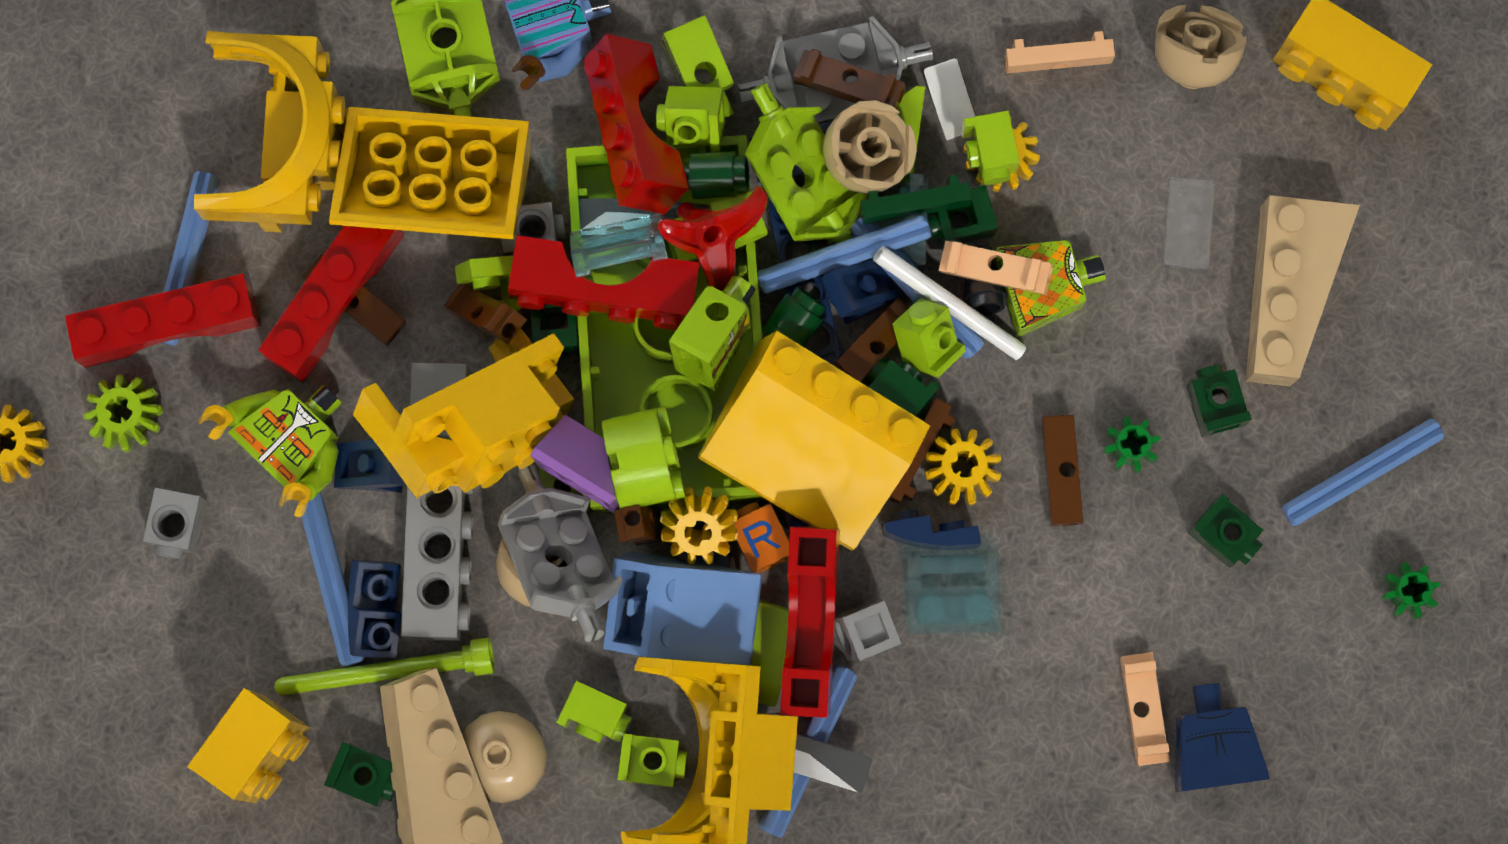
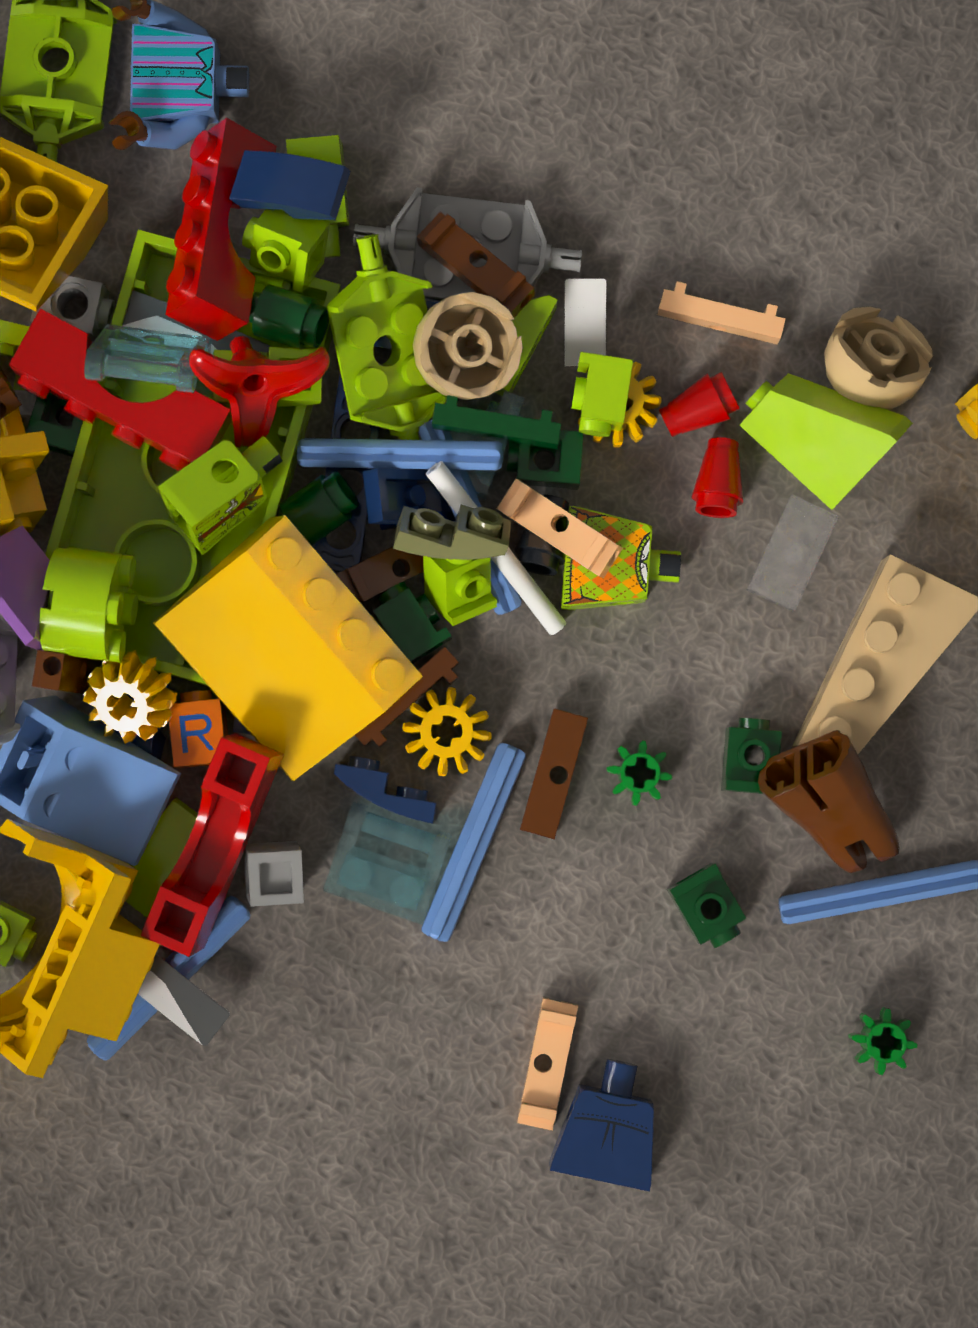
camera: 20 degrees right, 5 degrees up
(681, 65) = (291, 183): none -> dark blue slope
(927, 297) = (473, 534): none -> olive slope
(1017, 550) = (473, 842): none -> medium blue axle
(1069, 132) = (700, 405): none -> red cone
(1107, 187) = (719, 480): none -> red cone
(1177, 120) = (821, 434): none -> lime slope
(1296, 407) = (832, 799): none -> reddish brown piece

